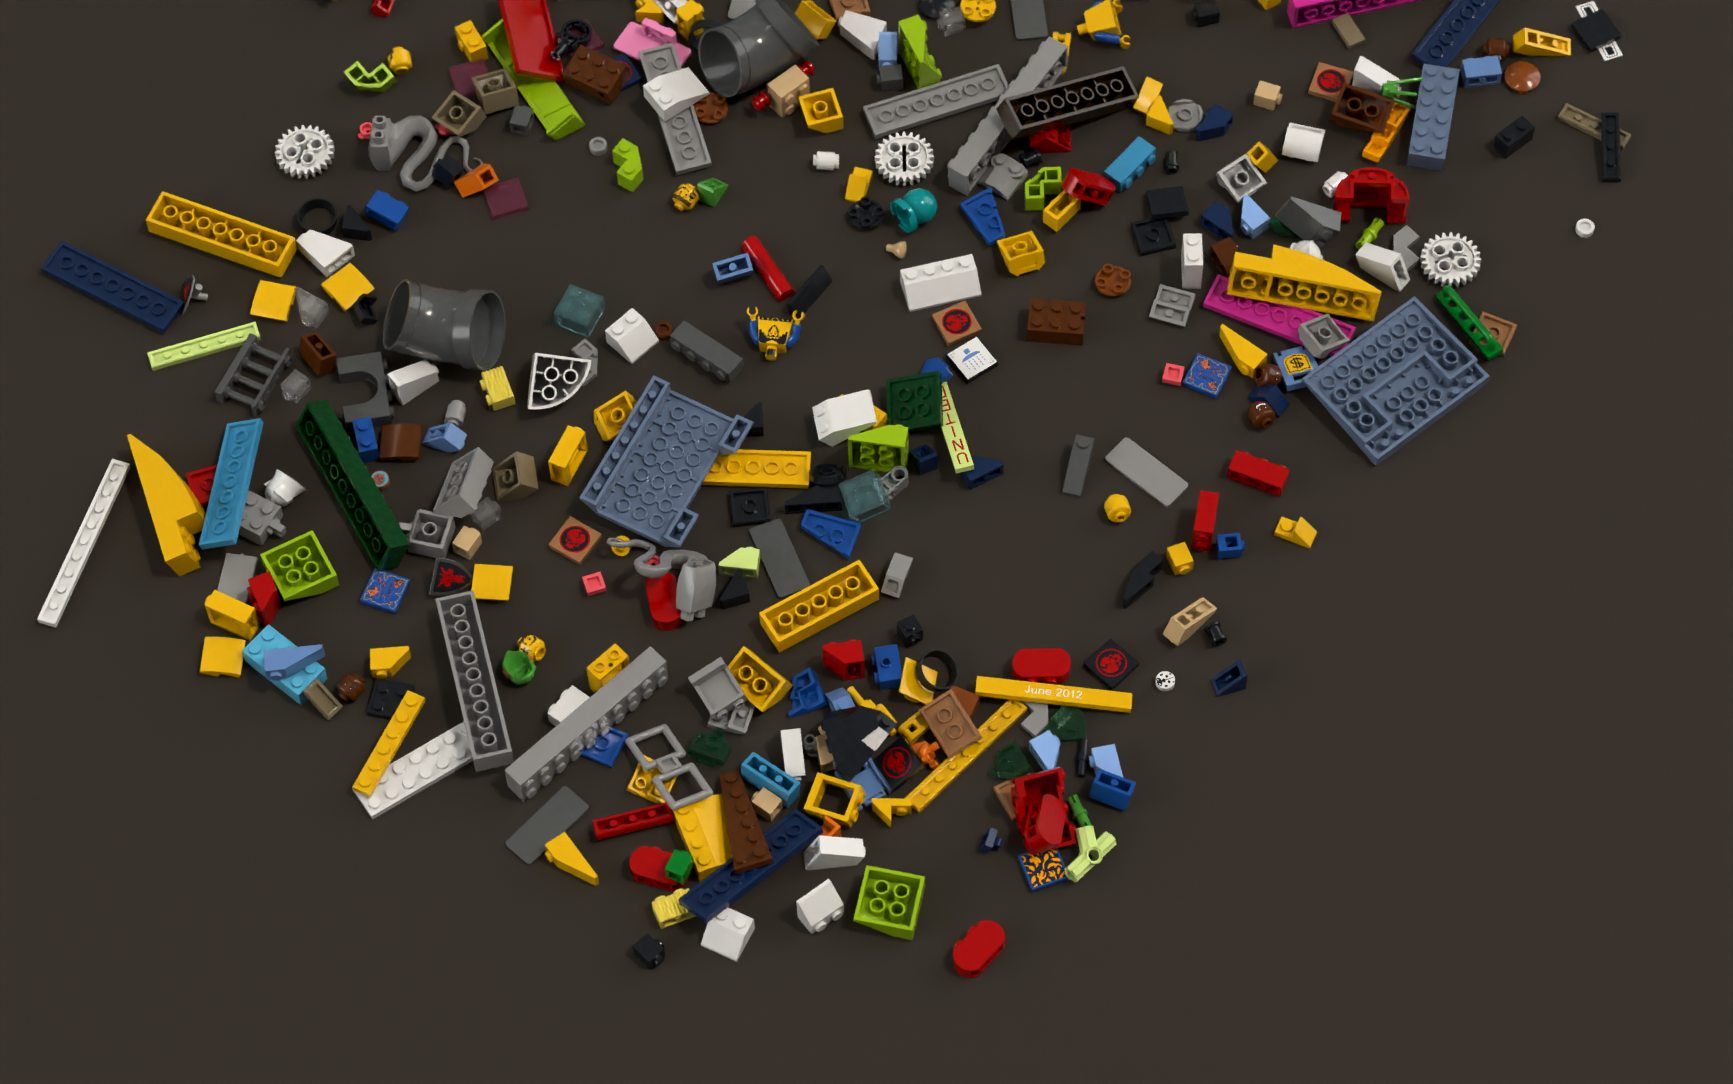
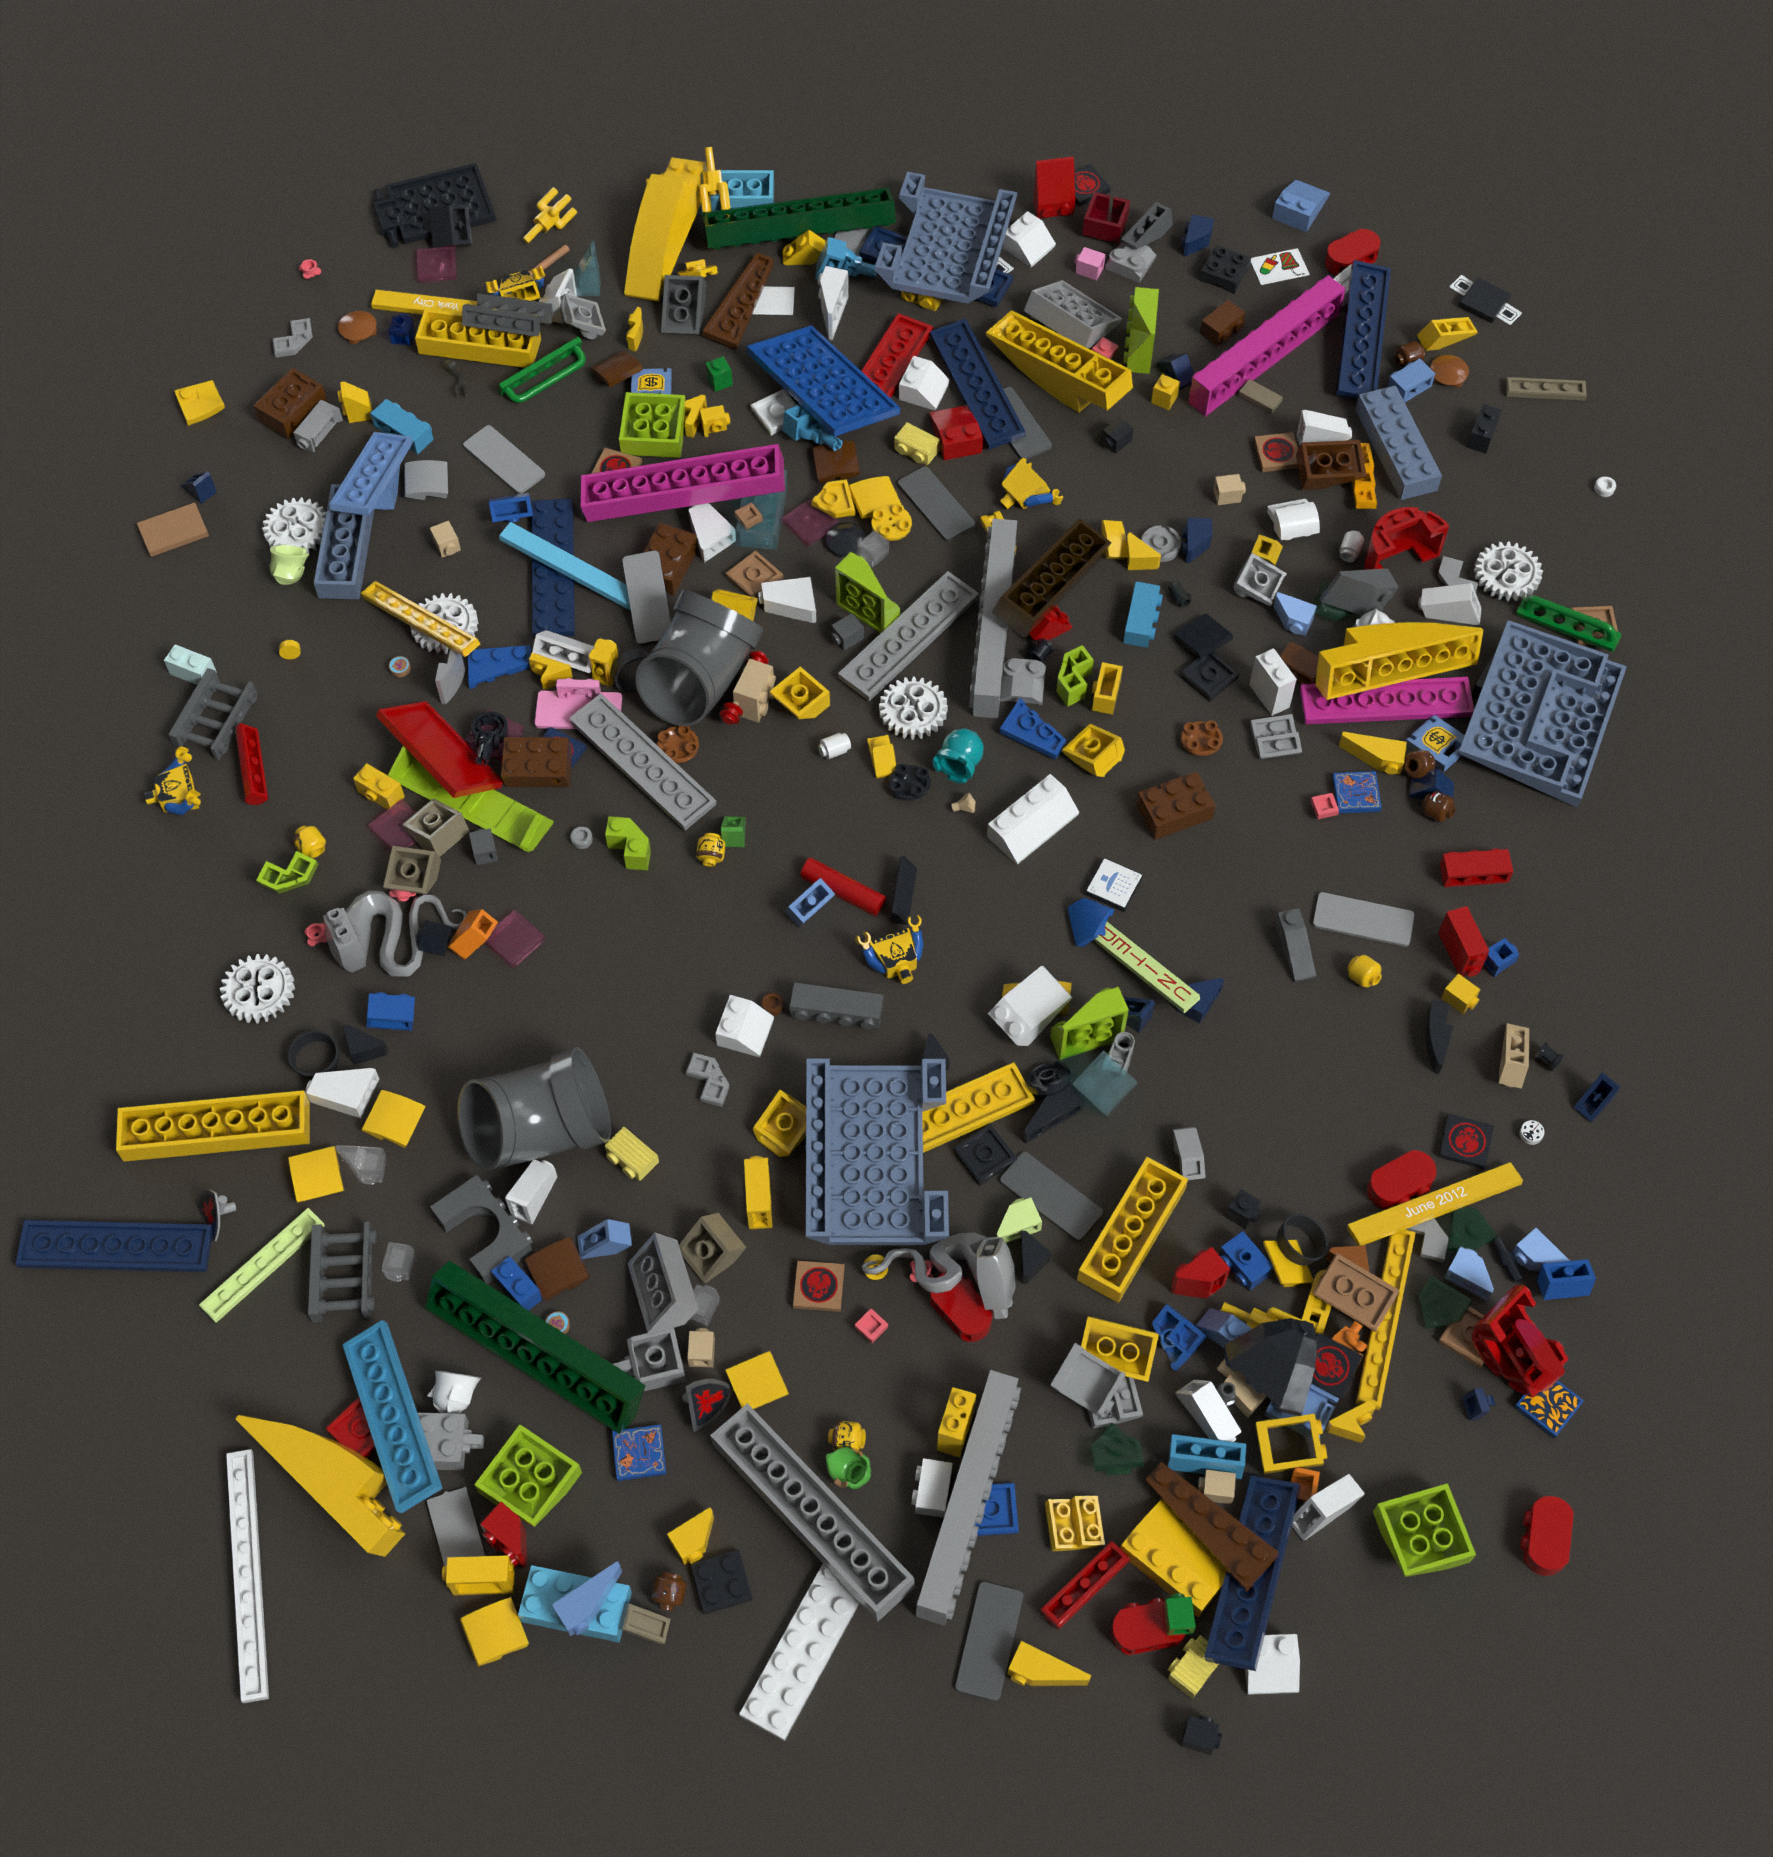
camera: 30 degrees left, 0 degrees up
(317, 353) = (404, 1211): reddish brown brick -> none
(364, 308) = (429, 1136): black bracket -> none
(388, 744) = (755, 1639): yellow plate -> none
(455, 413) = (600, 1205): light grey brick -> none
(555, 379) = (692, 1115): white brick -> none
(579, 310) = (670, 1024): clear light blue brick -> none
(669, 767) = (1090, 1500): light grey bar -> none
(674, 92) = (634, 745): white slope -> none
(820, 907) = (1355, 1580): white slope -> none
(832, 531) = (1090, 1138): blue wing -> none
(887, 48) = (829, 604): light blue slope -> none
(915, 401) = (1091, 957): dark green plate -> none
(956, 323) = (1074, 853): tile -> none
(1079, 813) = (1548, 1325): bright green pin -> none
(1088, 186) = (1122, 652): red brick -> none
(1089, 844) = (1590, 1362): yellowish green piece -> none
(1218, 220) = (1267, 632): dark blue slope -> none
(1296, 532) = (1549, 911): yellow slope -> none
(1321, 336) = (1447, 700): light grey slope -> none
(1370, 233) = (1415, 580): lime pin -> none
(1389, 90) = (1349, 432): bright green plant -> none
(1610, 147) = (1577, 400): black tile -> none

